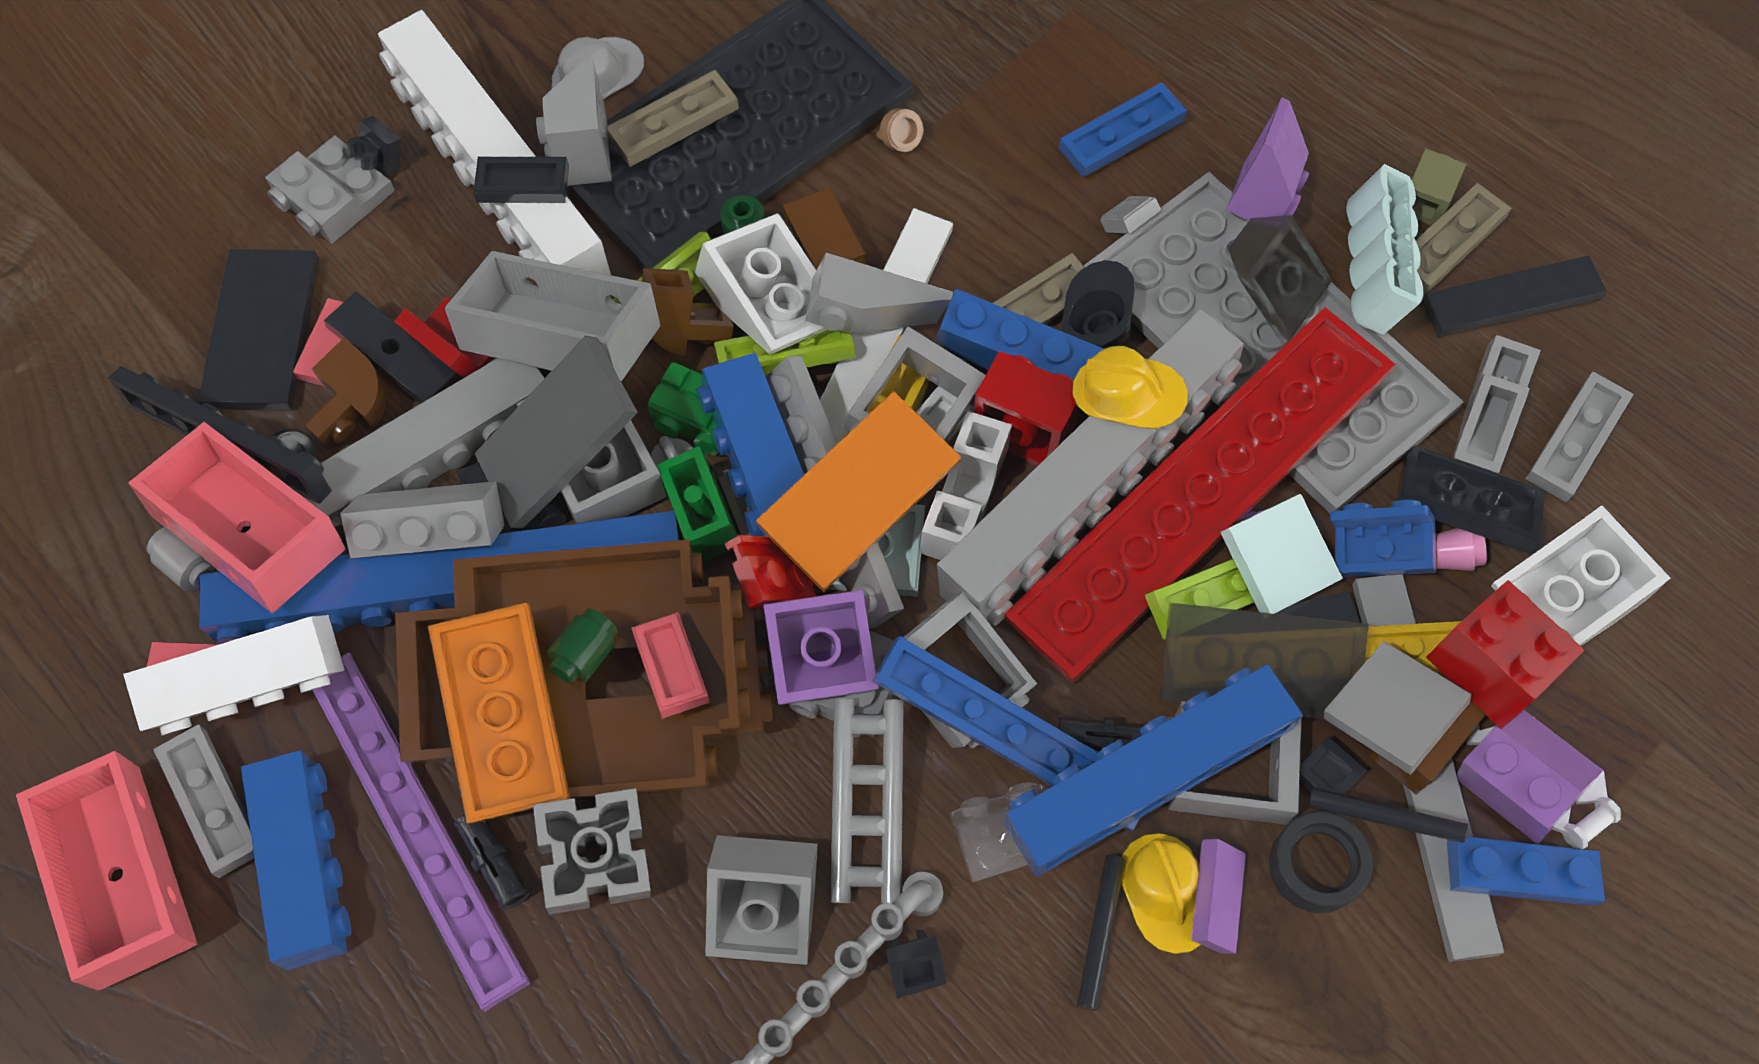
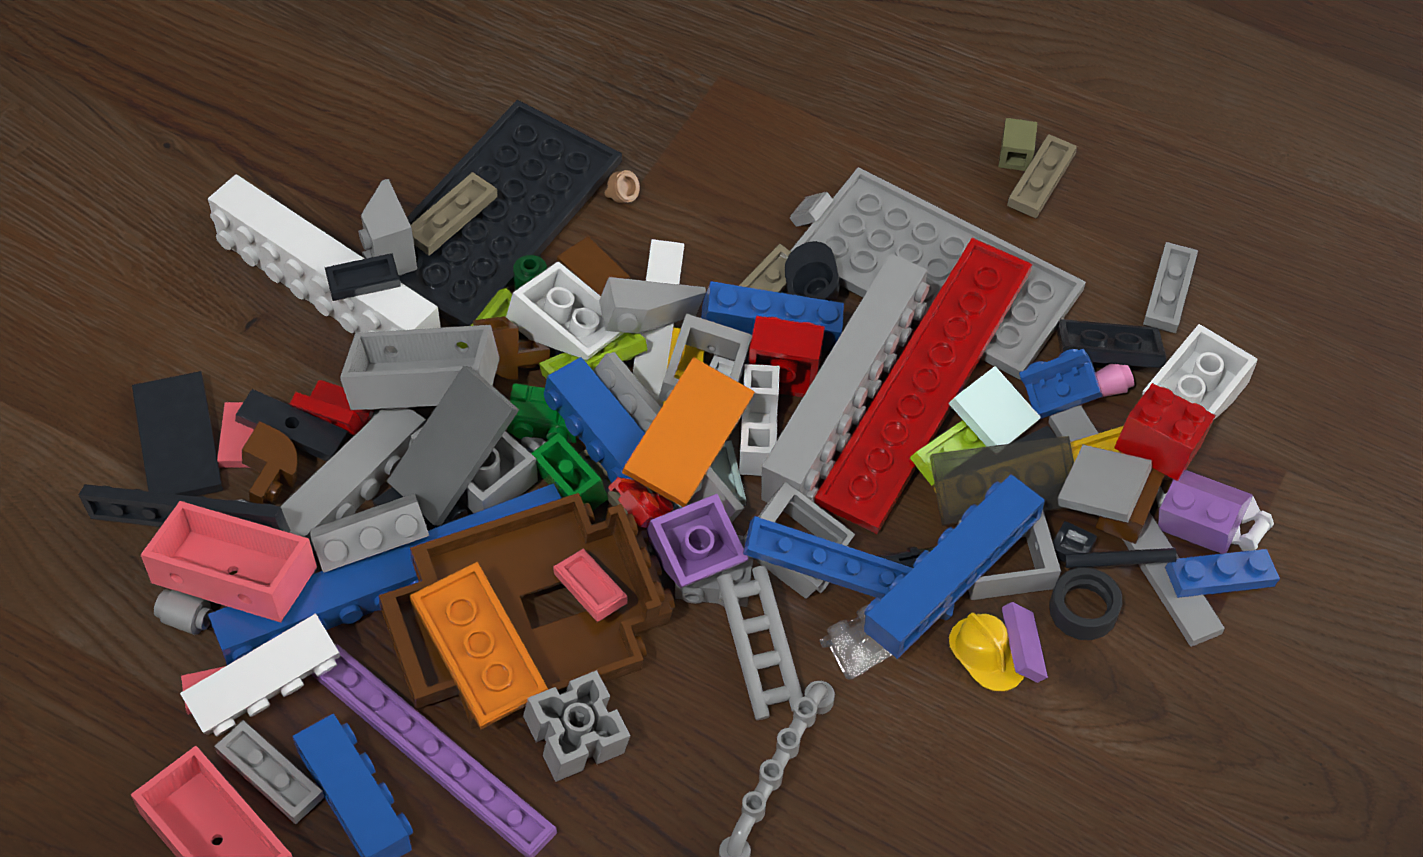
camera: 20 degrees left, 10 degrees down
(327, 189) = (193, 324): light grey plate -> none
(376, 146) = (223, 284): black tile -> none
(492, 862) = (517, 770): black pin -> none
(582, 646) = (523, 586): dark green brick -> none
(615, 60) = (361, 188): light grey piece -> none
(760, 899) = (708, 729): light grey slope -> none
(915, 965) = (831, 741): black tile -> none
(1101, 933) = (951, 689): black bar -> none
(1122, 129) = (785, 152): blue plate -> none
(1130, 389) = (858, 317): yellow piece -> none
(1273, 169) = (904, 156): medium lavender slope -> none
(1279, 272) = (932, 221): clear smoke slope -> none
(1384, 250) = (999, 192): light aqua brick -> none
(1495, 403) = (1107, 277): light grey slope -> none
(1513, 296) = (1097, 205): black tile -> none

